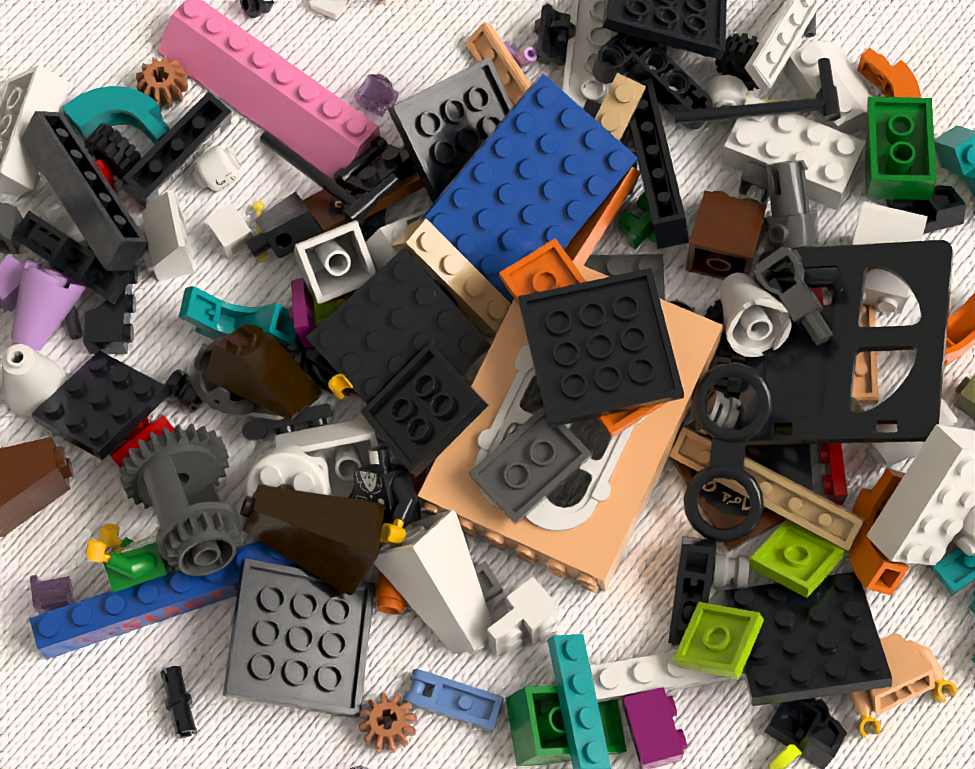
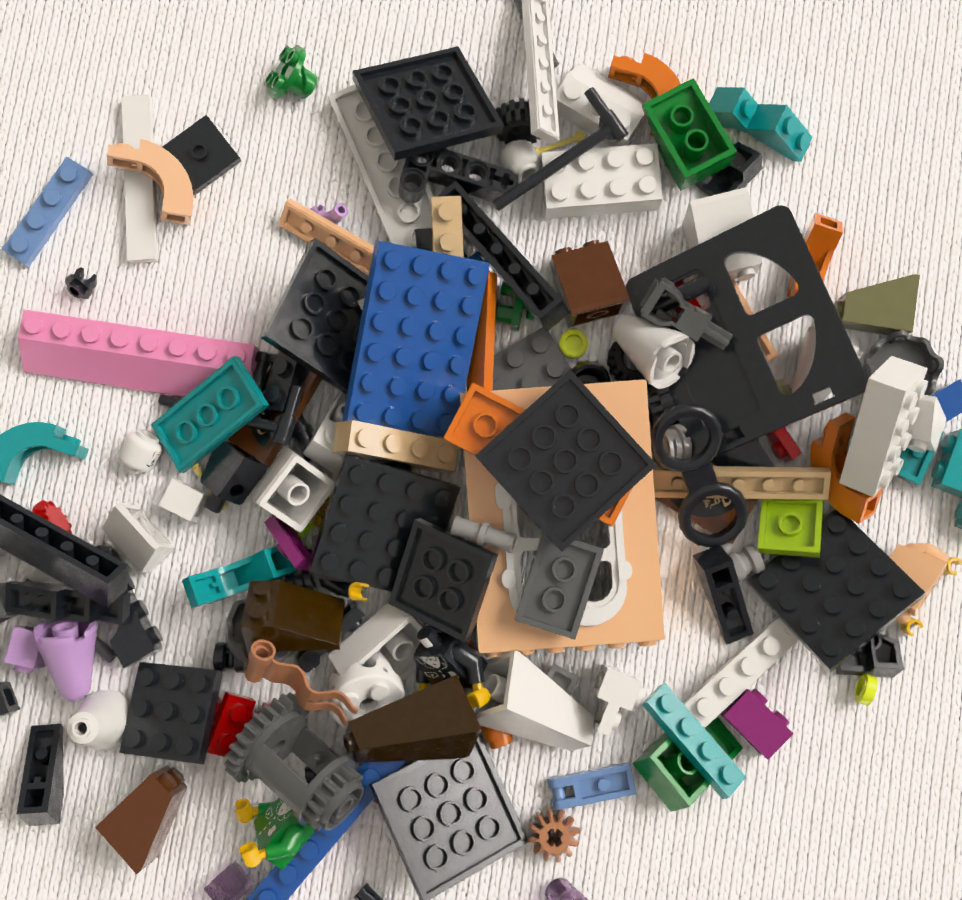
camera: 30 degrees left, 15 degrees up
(113, 148) = (44, 487): black tyre -> none
(163, 81) = (36, 395): nougat gear -> none
(177, 150) = (97, 455): black brick -> none
(231, 418) = (264, 666): none -> nougat flag
(300, 164) = (209, 414): none -> teal tile
(376, 94) = (233, 312): clear purple plate -> none
(486, 382) = (483, 534): none -> light grey pin
(553, 35) = (349, 180): black hips -> none
(681, 285) = (573, 344): none -> neon yellow tile
(718, 640) = (774, 633): lime plate -> none
(755, 175) = (587, 219): dark grey piece -> none
(791, 218) = (635, 244): dark grey piece -> none

